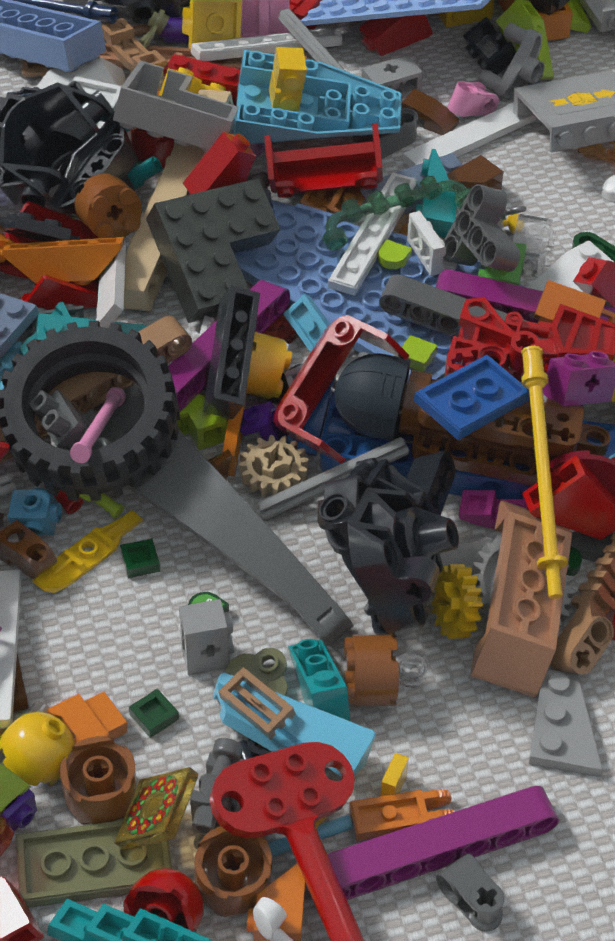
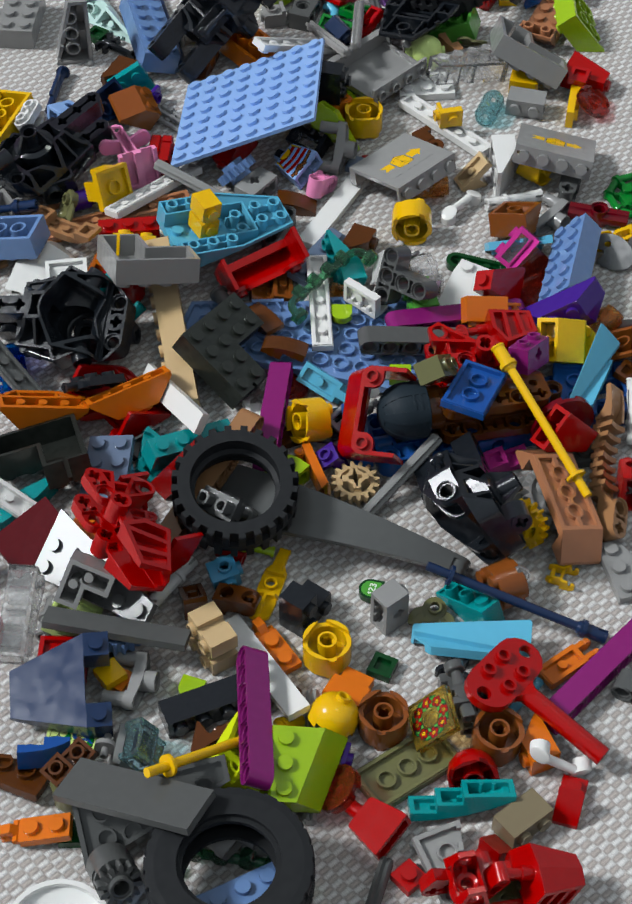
camera: 25 degrees left, 0 degrees up
(36, 632) = (276, 646): none -> orange hinge
(82, 450) = (259, 517): bright pink bar -> none
(92, 657) = (326, 648): none -> yellow brick
(100, 594) = (303, 606): none -> black brick
(108, 206) = (139, 348): dark orange brick -> none
(140, 558) = (307, 571): dark green tile -> none
(223, 164) = (203, 294): red slope -> none
(231, 352) = (295, 417): black brick -> none
(276, 720) = (428, 630): medium nougat tile -> none
(293, 228) = (271, 321): none -> reddish brown slope
(298, 271) = (278, 345): none -> reddish brown slope
(376, 50) = (236, 170): none -> medium blue gear
(395, 775) = (552, 642): yellow tile -> none
(431, 351) = (435, 369): none -> olive brick
(446, 772) = (581, 628): none -> dark blue bar
(458, 64) = (297, 164): none -> light blue torso
(476, 685) = (562, 570): none -> yellow piece
(555, 176) = (411, 221): none -> yellow brick
(576, 41) = (364, 117): none -> yellow brick

